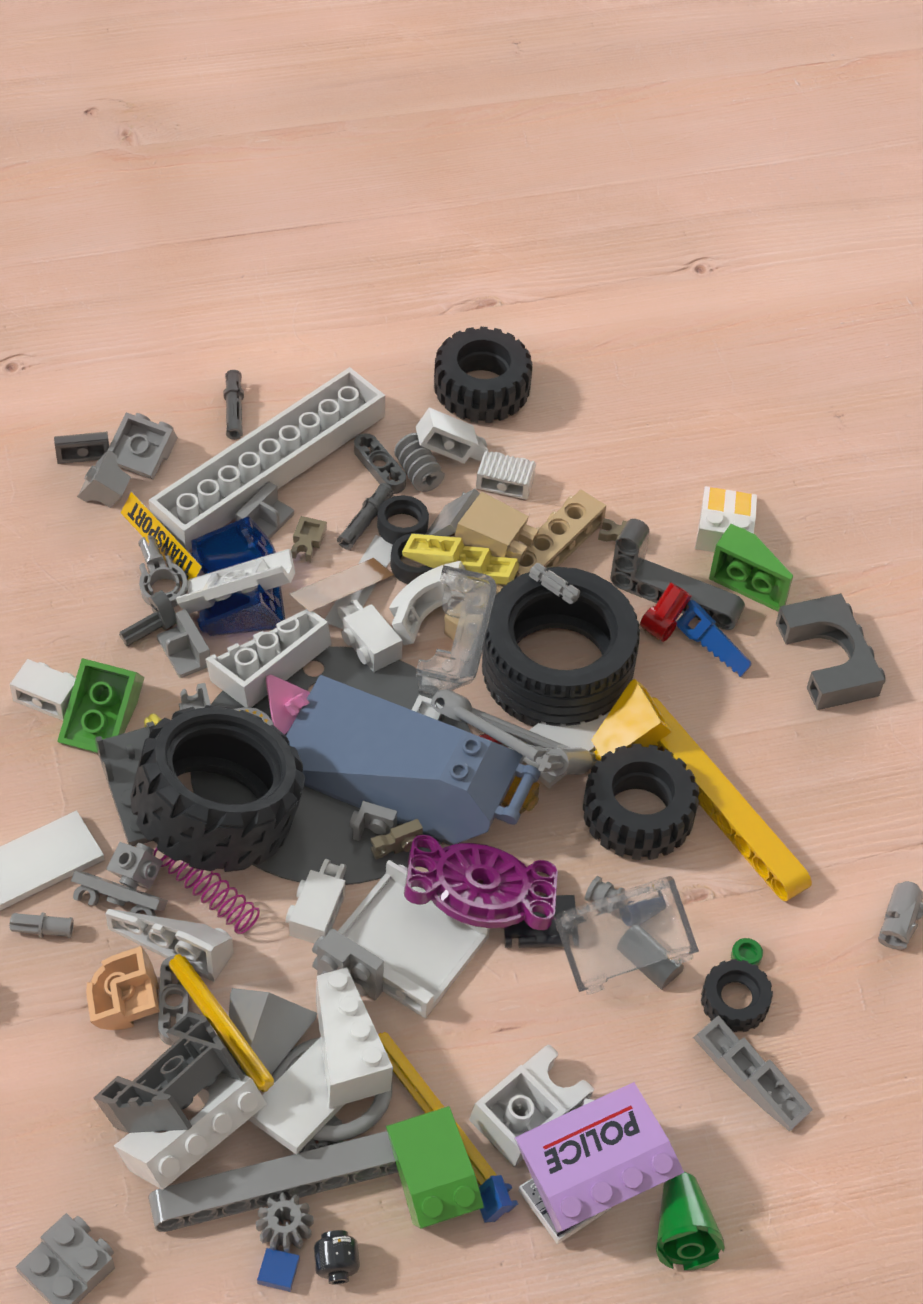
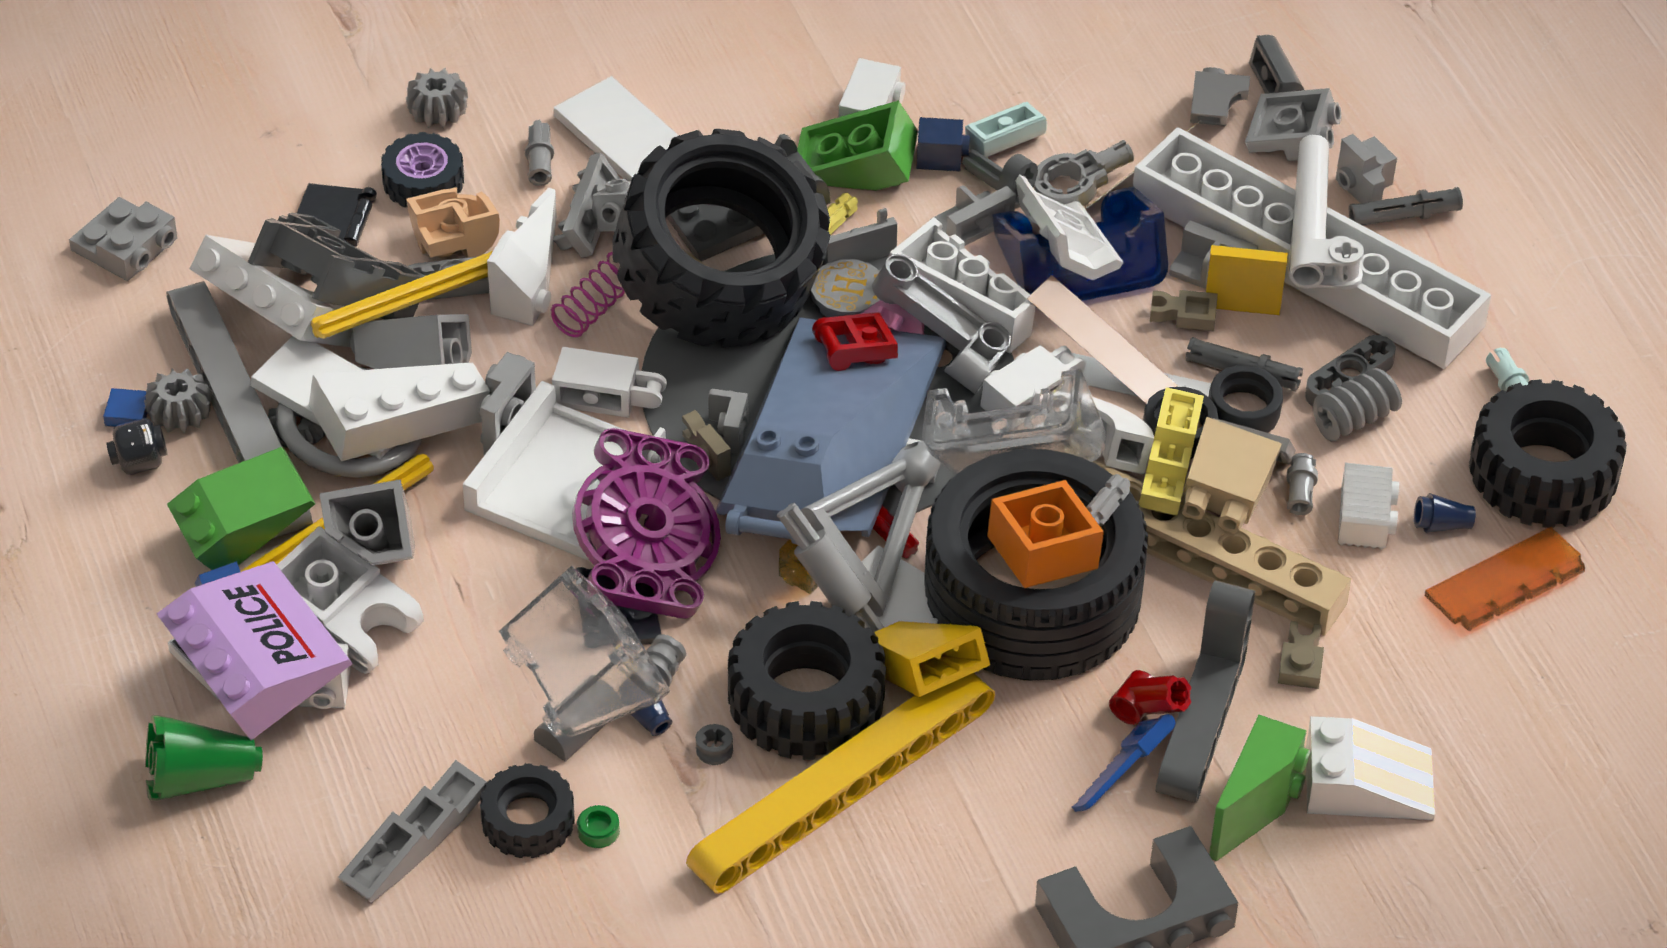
camera: 85 degrees right, 5 degrees down
(35, 1000) = (421, 166): none -> black wheel
(70, 1093) = (339, 207): none -> black piece
(102, 611) = (1006, 129): none -> light aqua brick
(108, 647) = (941, 144): none -> dark blue brick
(199, 415) = (1365, 168): none -> light grey brick
(300, 492) = (1247, 279): none -> yellow tile
(309, 445) = (1313, 257): none -> white axle
(326, 714) = (868, 339): none -> red plate
(330, 655) = (979, 341): none -> light grey piece
(406, 383) = (1506, 369): none -> light aqua pin
(450, 436) = (1405, 426): white brick -> none
(481, 1057) = (370, 521): none -> light grey slope
(516, 442) = (1442, 514): none -> dark blue cone
(569, 423) = (1506, 579): none -> clear orange windscreen
(588, 613) = (1045, 533): none -> orange brick
(678, 864) = (714, 755): none -> dark grey bush

